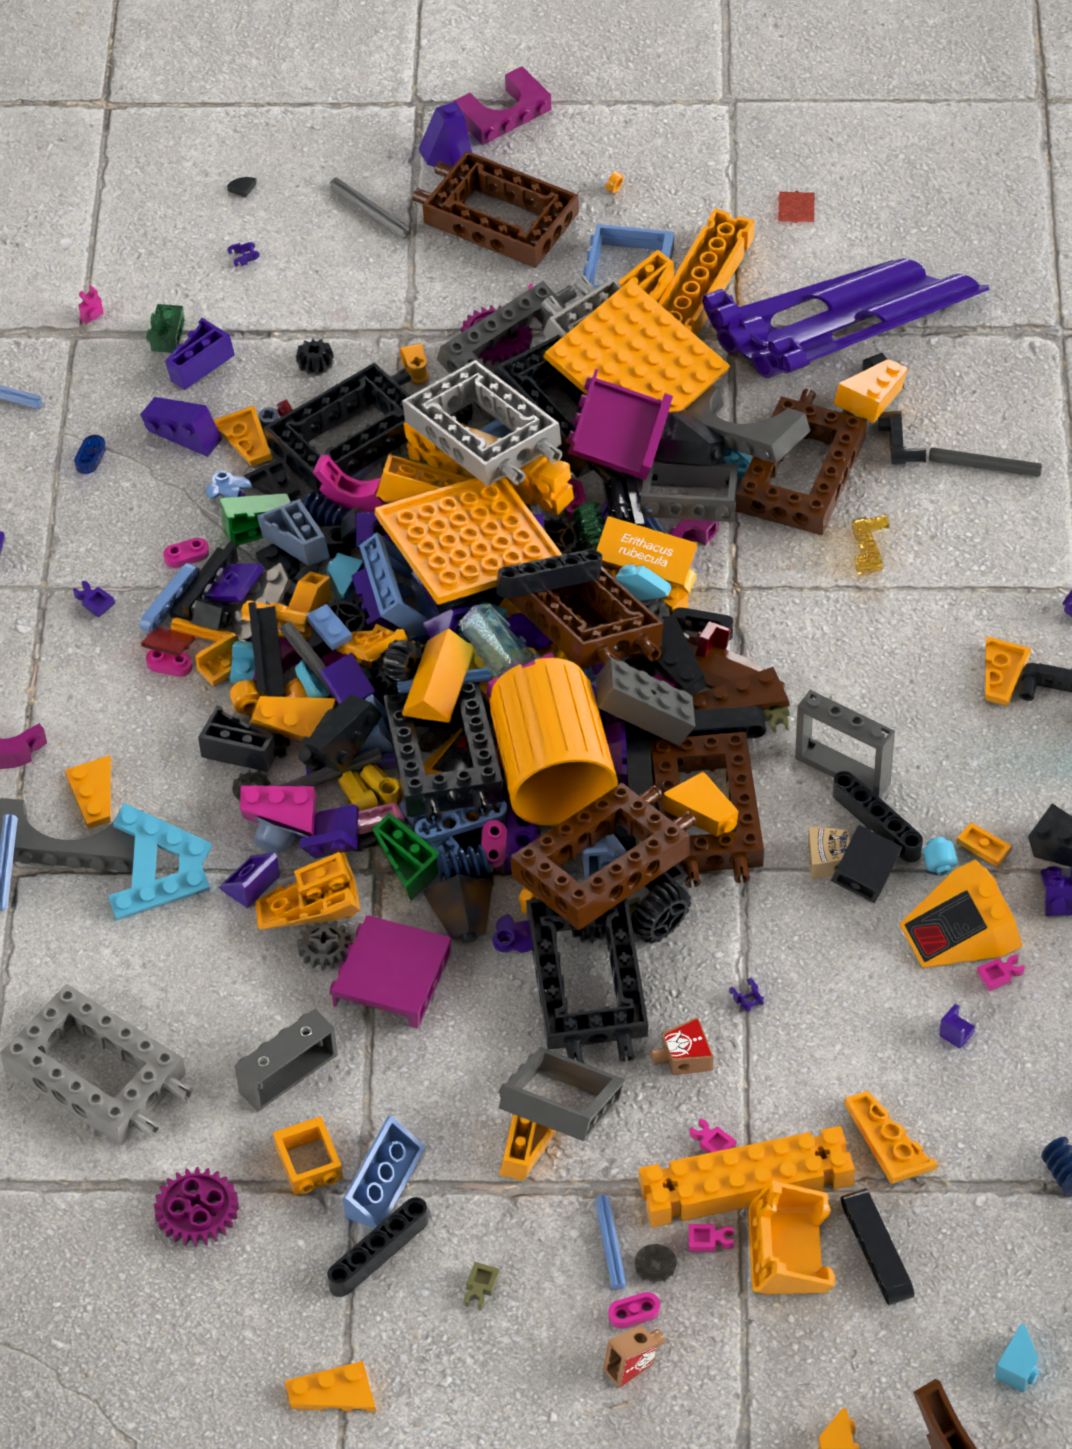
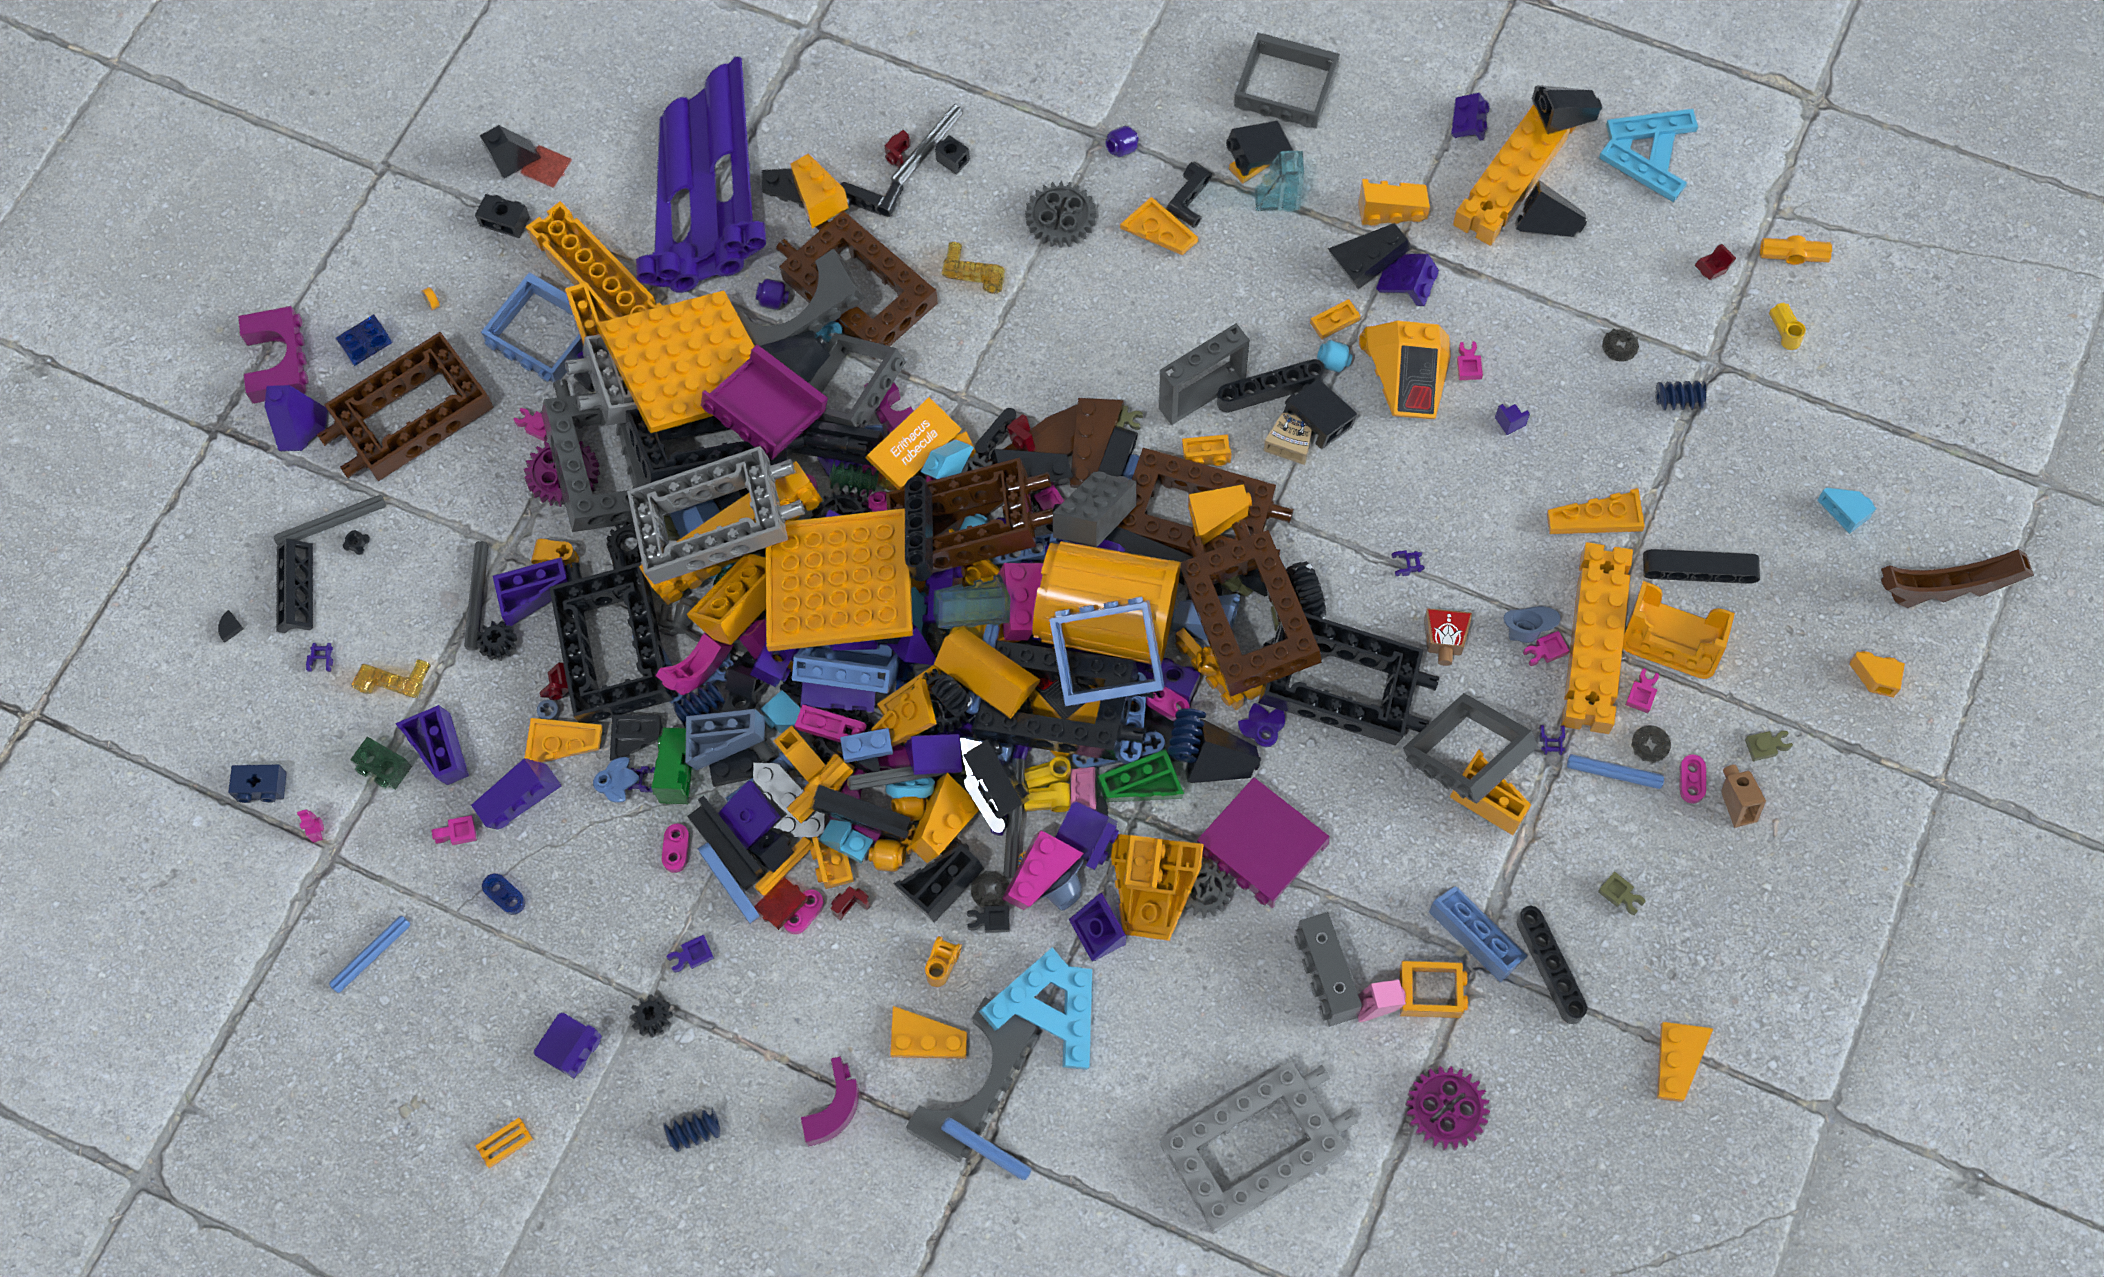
camera: 65 degrees left, 15 degrees up
(26, 592) = (651, 1026): none -> black gear
(112, 259) = (245, 777): none -> dark blue brick
(129, 402) = (460, 831): none -> dark pink plate
(163, 773) = (943, 957): none -> light orange piece
(191, 686) = (844, 902): none -> dark red bracket
(222, 797) = (995, 919): none -> black plate
(246, 320) = (410, 686): none -> clear yellow beam
(274, 1110) = (1381, 999): none -> bright pink slope
(293, 204) = (286, 587): none -> black fence
(342, 599) = (826, 723): none -> dark pink plate
(356, 326) = (476, 595): none -> dark grey axle
(359, 231) = (351, 538): none -> black plate
(365, 347) = (527, 588): none -> dark purple wedge
(462, 718) = (1114, 691): none -> medium blue window
(548, 155) = (364, 340): none -> clear blue brick
(617, 1167) = (1543, 738): none -> dark purple piece
(706, 1366) = (1765, 746): none -> olive plate
(724, 192) = (490, 215): none -> black brick
(729, 1111) = (1528, 623): none -> sand blue piece
(754, 407) = (771, 294): none -> dark purple head
(777, 790) = (1207, 450): none -> light orange bracket
(787, 167) = (508, 150): none -> black slope
(965, 438) = (895, 147): none -> dark red bracket
(969, 587) = (1041, 209): none -> dark grey gear
(984, 482) = (955, 161): none -> black brick

